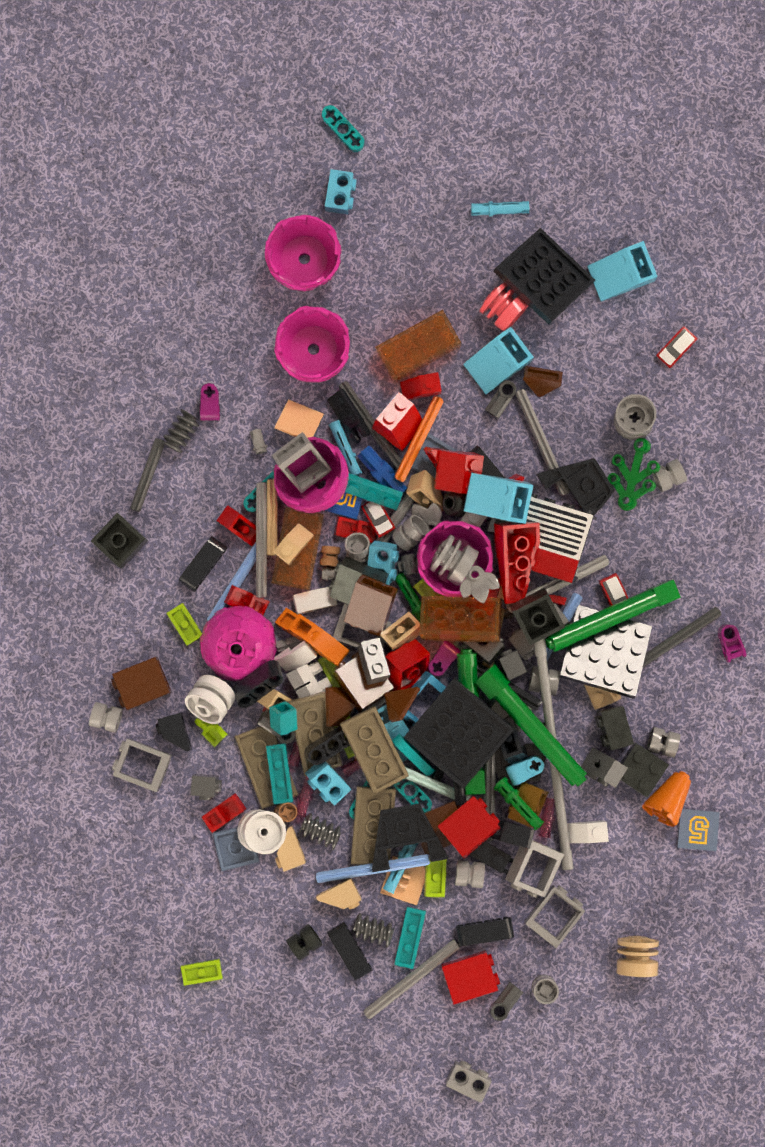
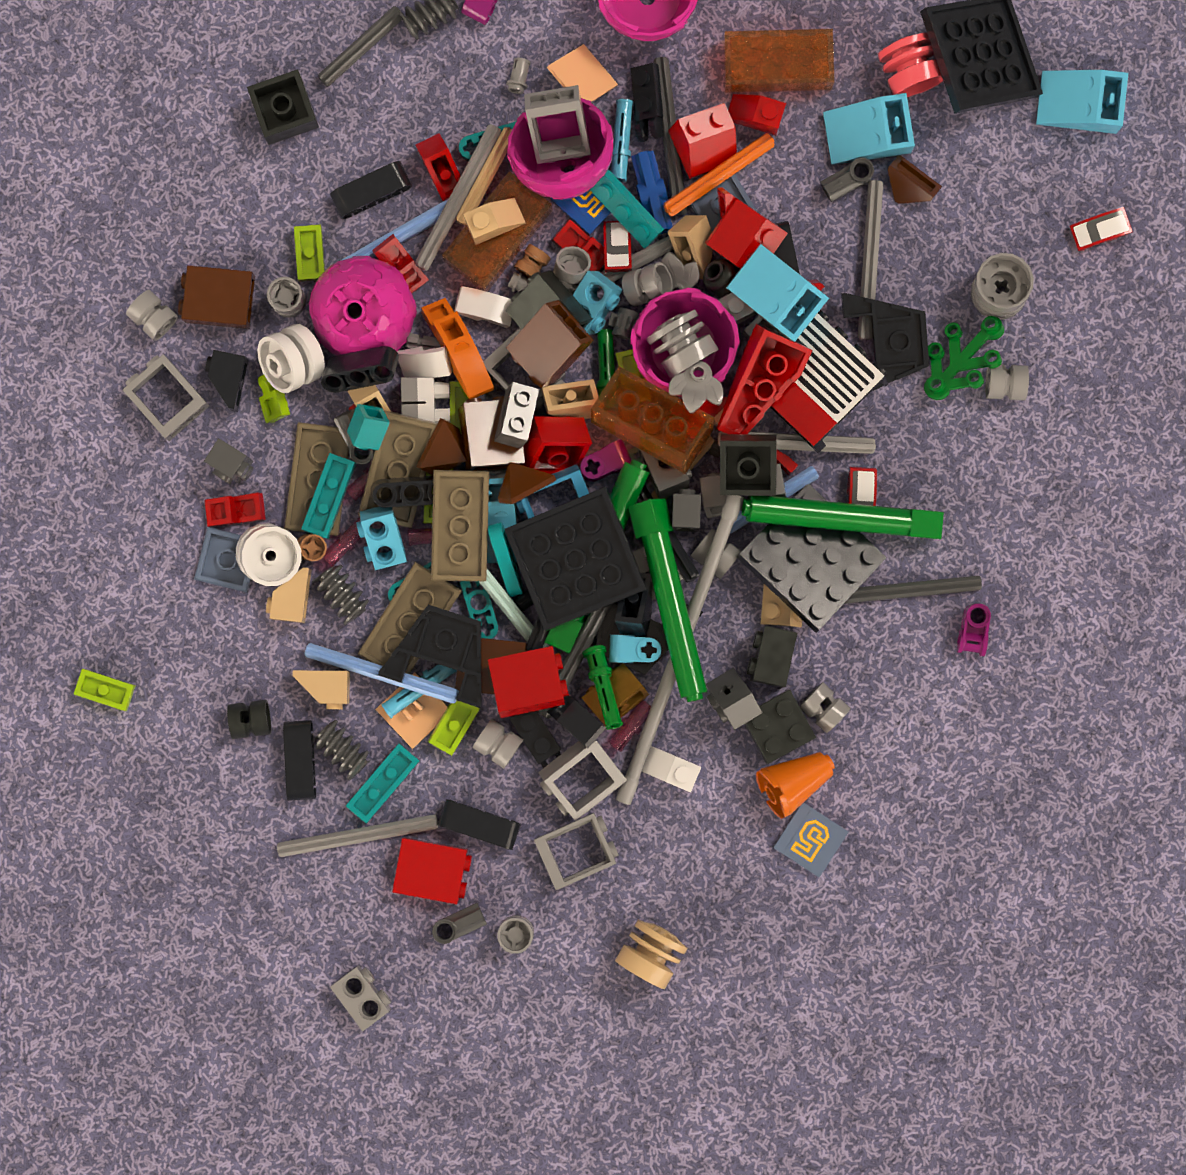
camera: 30 degrees right, 0 degrees up
(185, 660) = (286, 297): none -> light grey wheel

